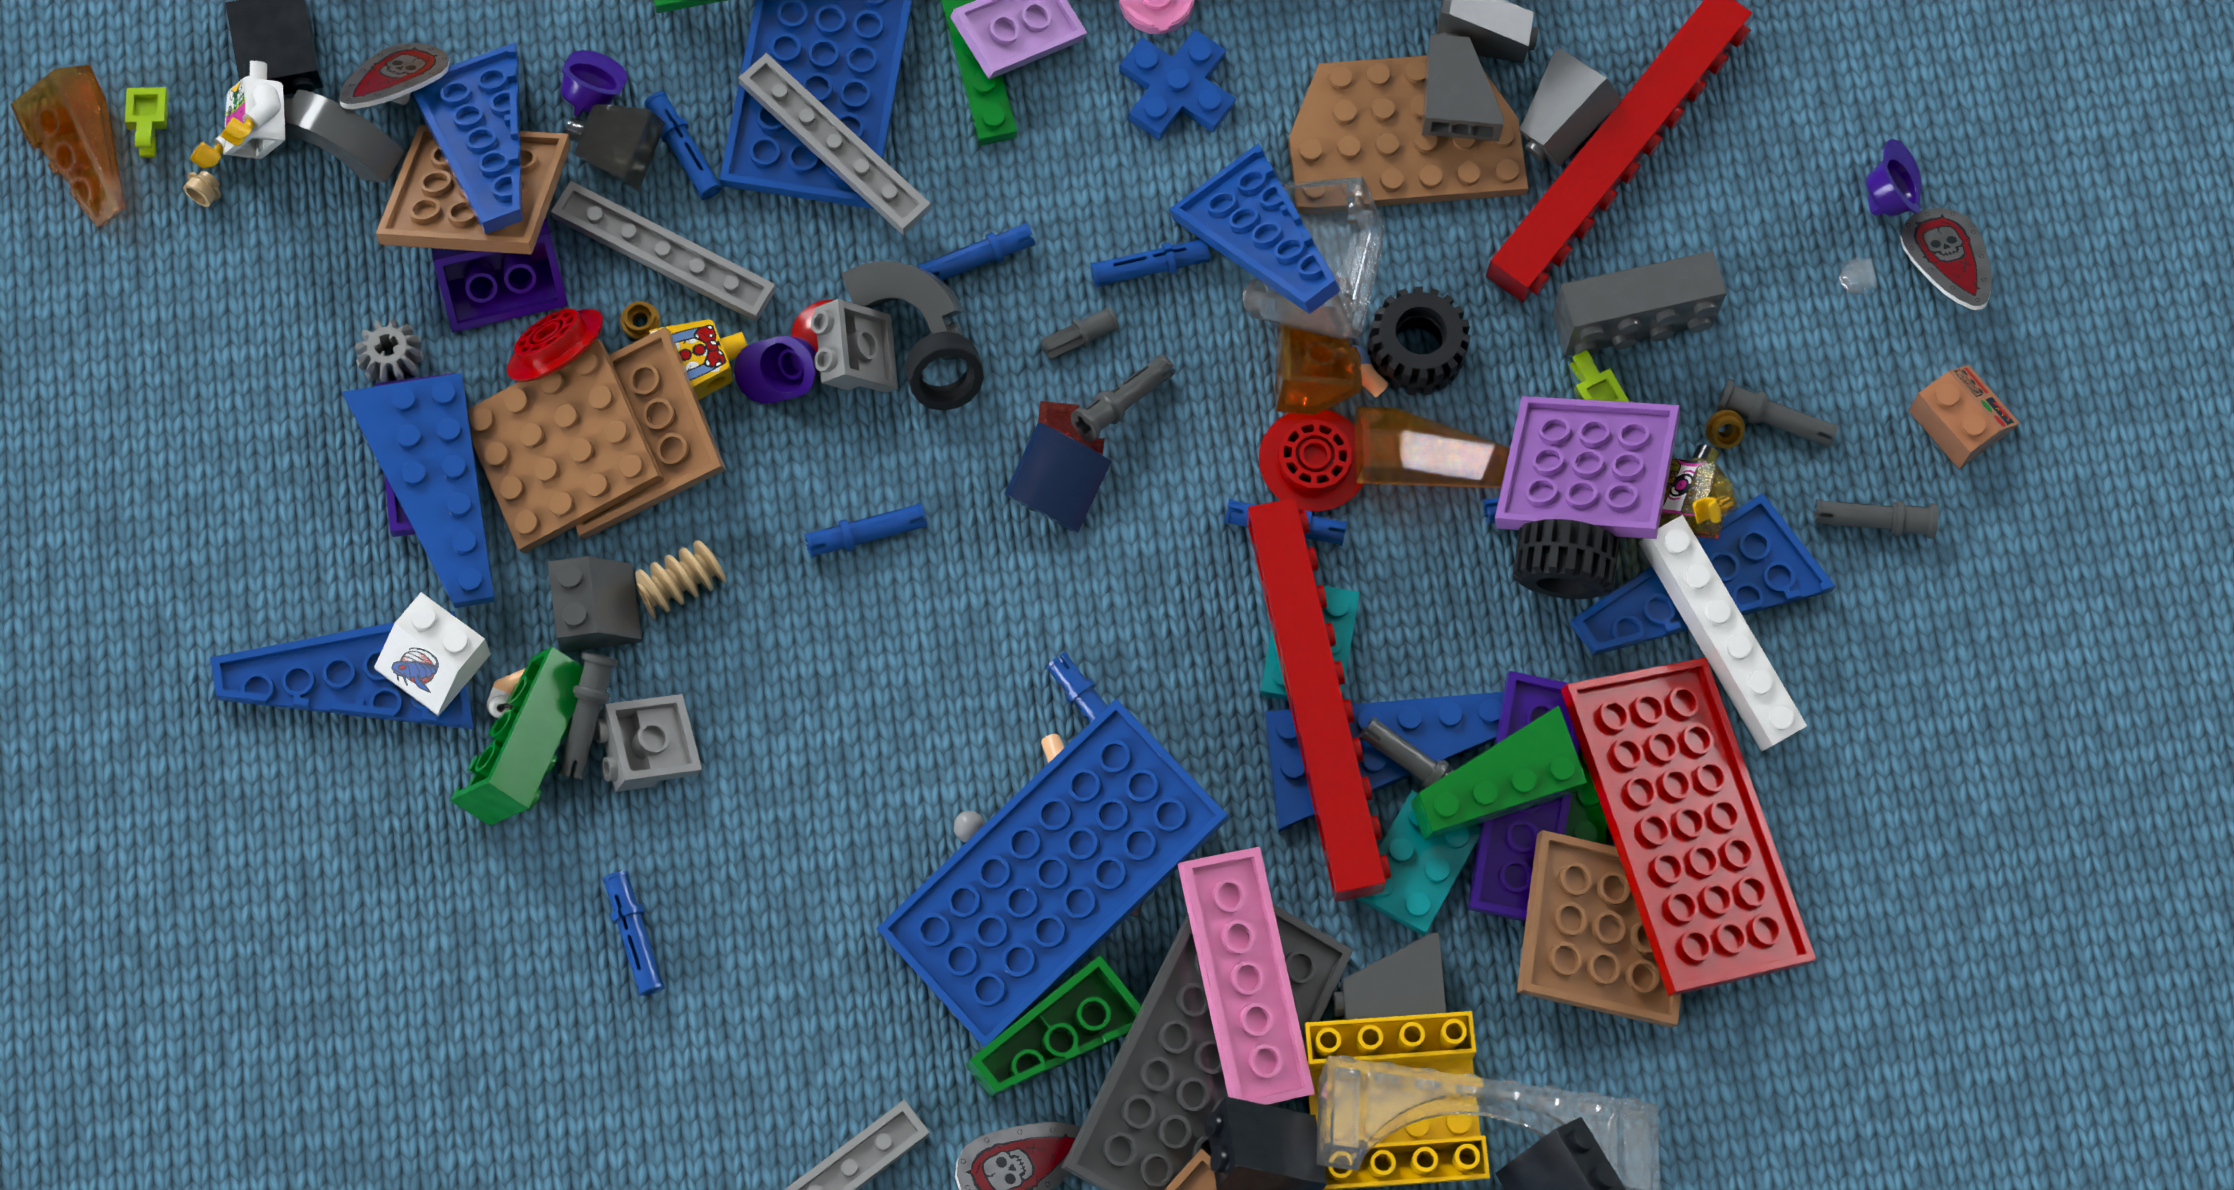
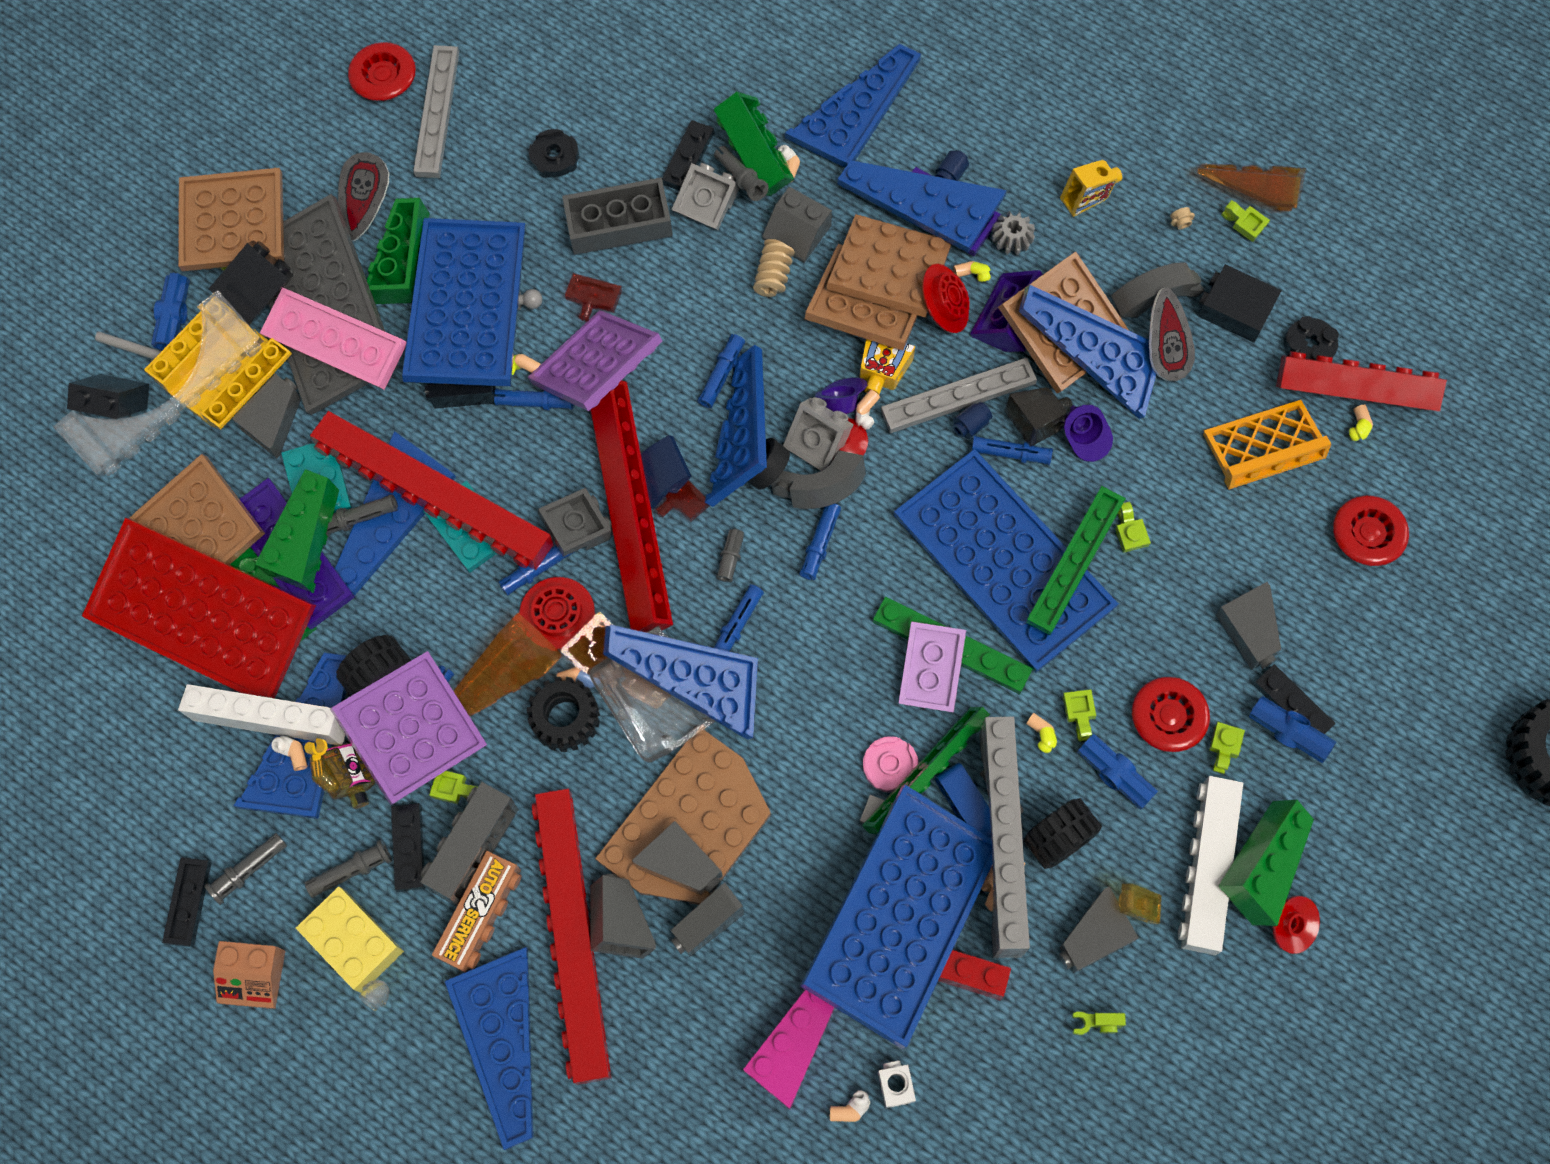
camera: 140 degrees right, 0 degrees up
(250, 309) = (1089, 186): none -> yellow torso
(252, 119) = (1195, 251): white torso -> none
(354, 491) = (953, 165): none -> dark blue brick
(431, 654) = (833, 136): white slope -> none
(473, 363) = (973, 267): none -> arm
(603, 824) = (688, 151): none -> black plate
(628, 917) = (633, 131): blue pin -> none
(639, 310) = (930, 351): pearl gold plate -> none
(684, 211) = (972, 420): none -> dark blue brick
(746, 1011) = (554, 166): none -> black plate
(772, 815) = (617, 216): none -> dark grey brick
(783, 326) = (863, 410): none -> arm
(834, 143) = (942, 512): light grey plate -> none
(900, 761) = (592, 294): none -> clear red plate
(931, 422) = (742, 437): none -> blue wing
(992, 654) = (595, 360): none -> medium lavender plate
(1111, 405) = (673, 531): dark grey pin -> none
(1124, 480) = (630, 512): none -> red brick
(1177, 84) = (827, 729): blue plate -> none
(1200, 514) = (576, 522): none -> dark grey plate
(1702, 375) = (407, 847): none -> black plate
(1724, 567) = (291, 748): none -> arm
(1729, 437) = (367, 833): pearl gold plate -> none
(1735, 236) = (477, 912): none -> brick
(1772, 137) = (496, 1026): none -> blue wing
(1838, 343) = (349, 939): none -> light yellow brick
(1895, 182) = (402, 1070): dark purple piece -> none
(1949, 255) = (335, 1056): shield -> none
(1966, 542) = (186, 902): none -> black plate

